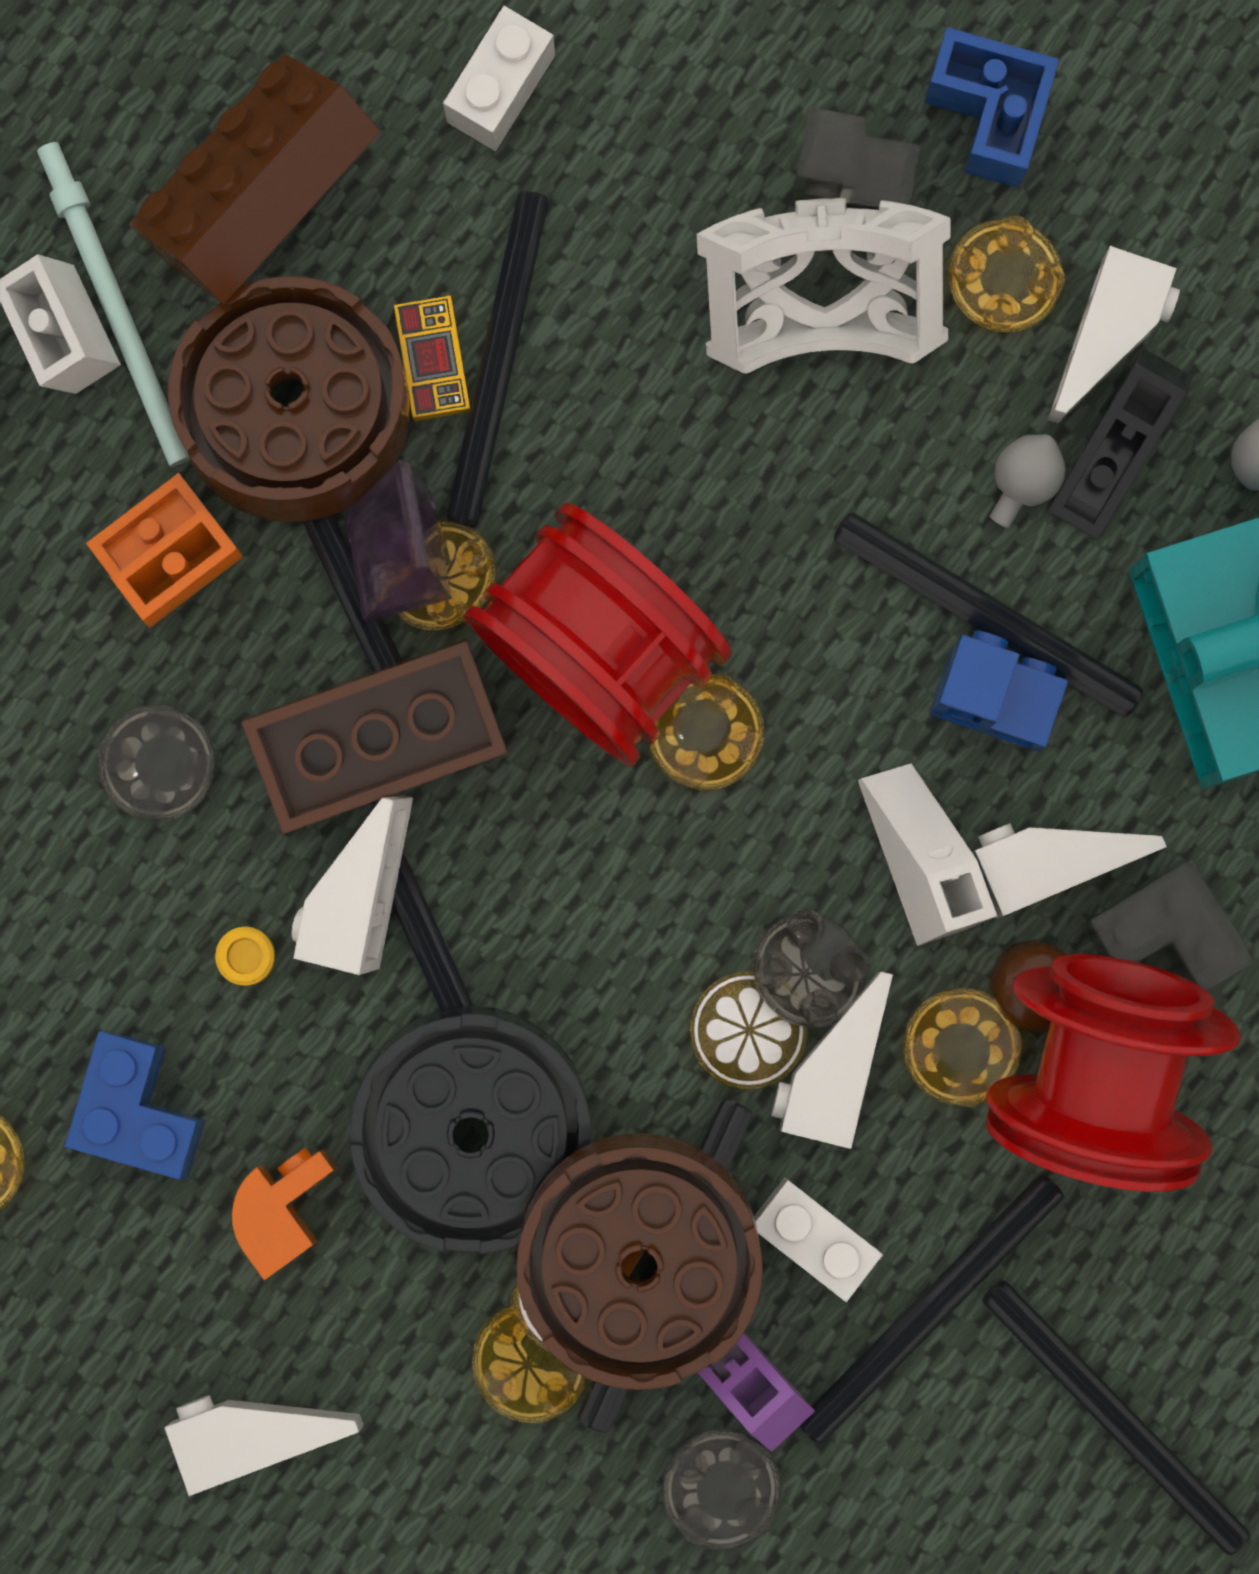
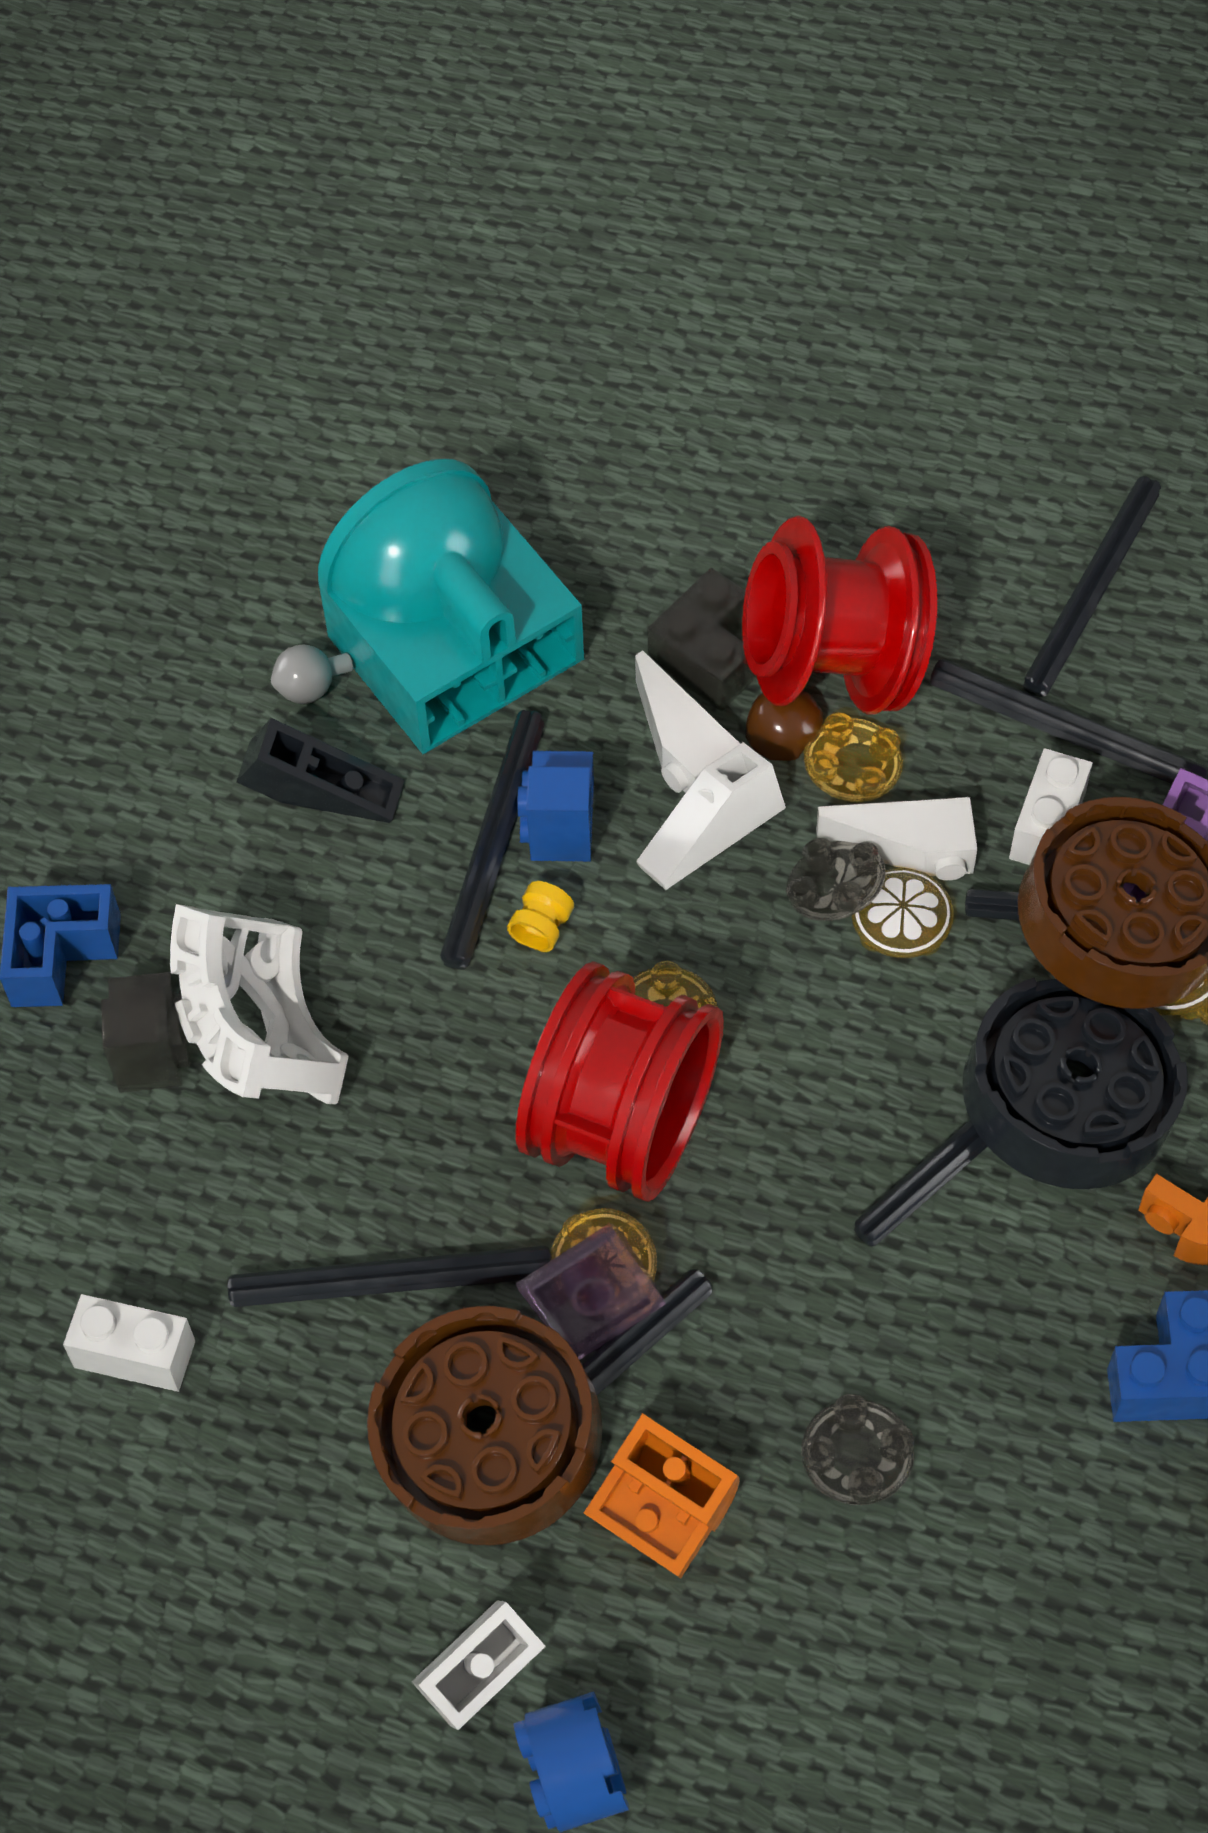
camera: 105 degrees left, 25 degrees down
(71, 203) = (349, 1705): light aqua bar -> none
(245, 956) = (1000, 1323): yellow tile -> none
(254, 177) = (285, 1517): reddish brown brick -> none
(352, 903) = (918, 1234): white slope -> none
(374, 736) = (767, 1257): reddish brown brick -> none
(432, 358) = (382, 1333): tile -> none
(866, 634) = (542, 913): none -> yellow wheel
(1005, 275) = (199, 884): clear yellow dish -> none
(1027, 474) = (367, 834): light grey piece -> none
(1119, 315) = (219, 807): white slope -> none

